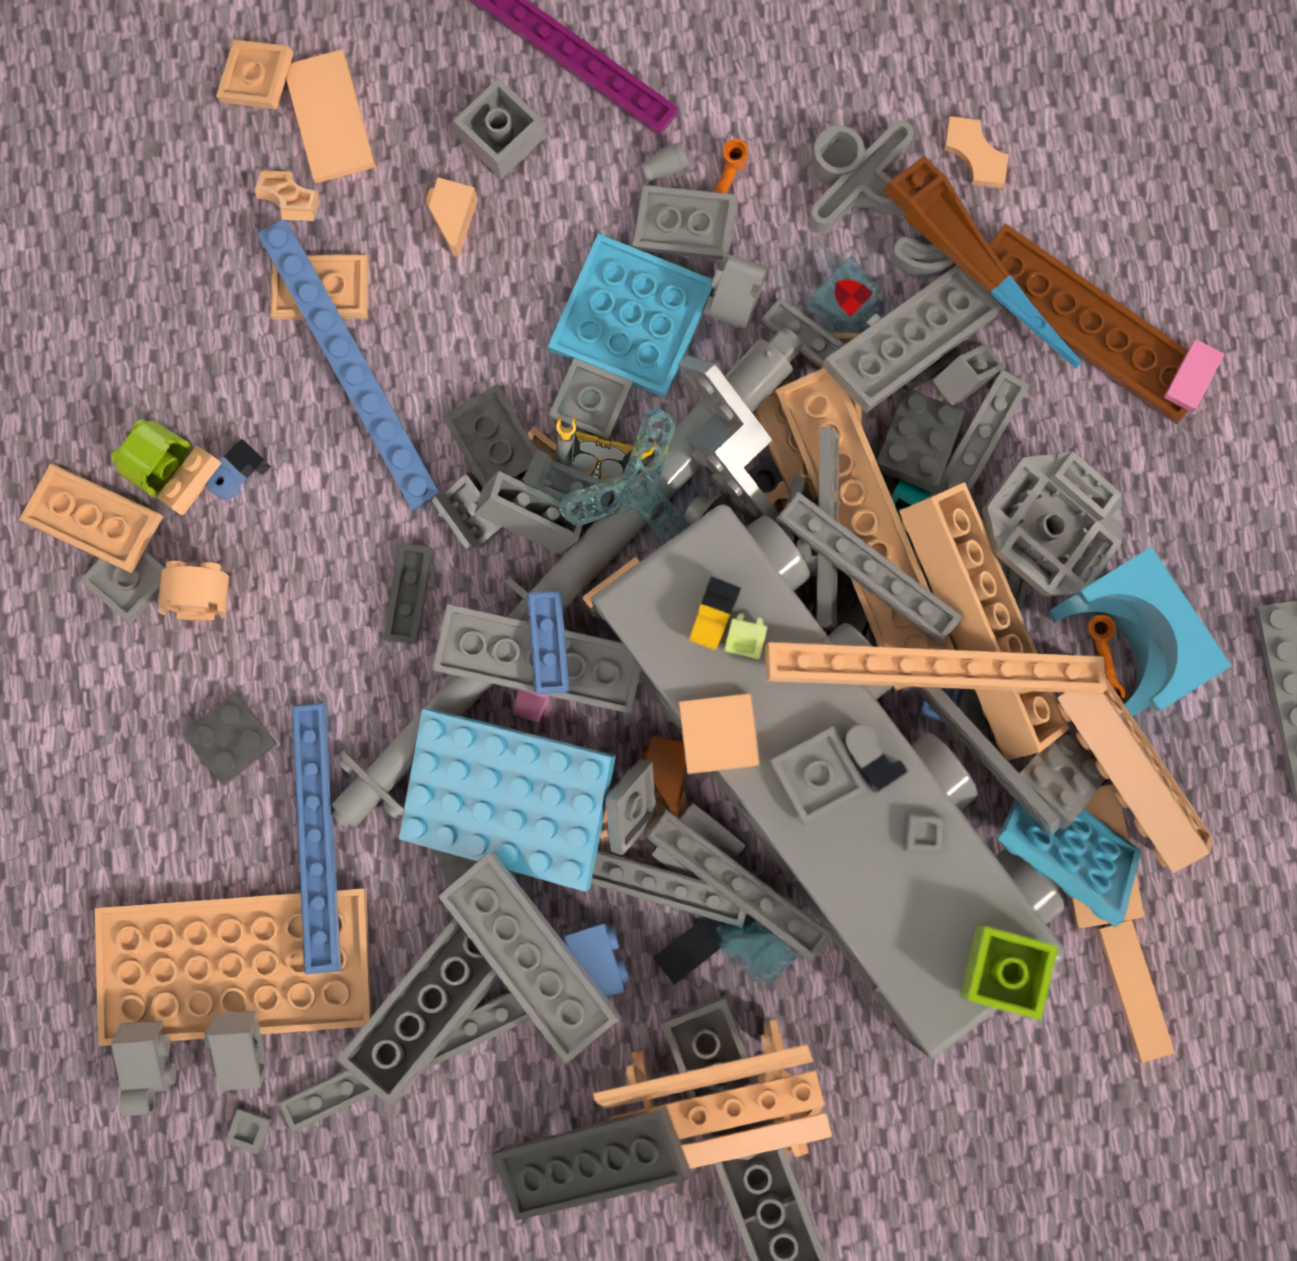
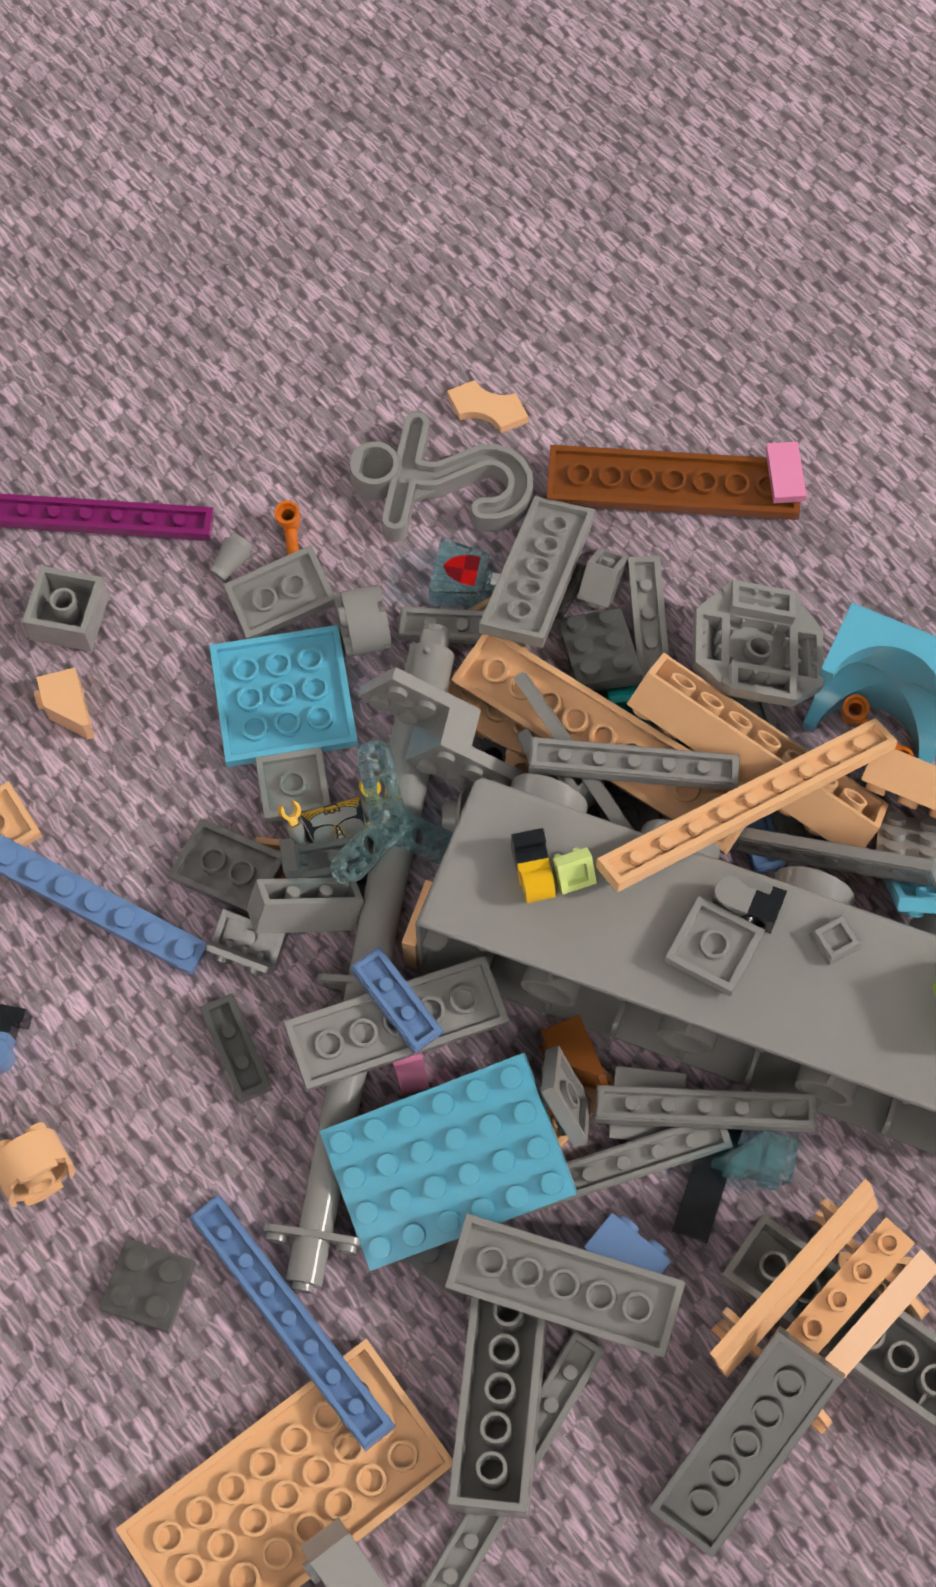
camera: 35 degrees left, 15 degrees down
(719, 733) = (605, 966): light nougat tile -> none
(942, 218) = (496, 465): dark orange plate -> none

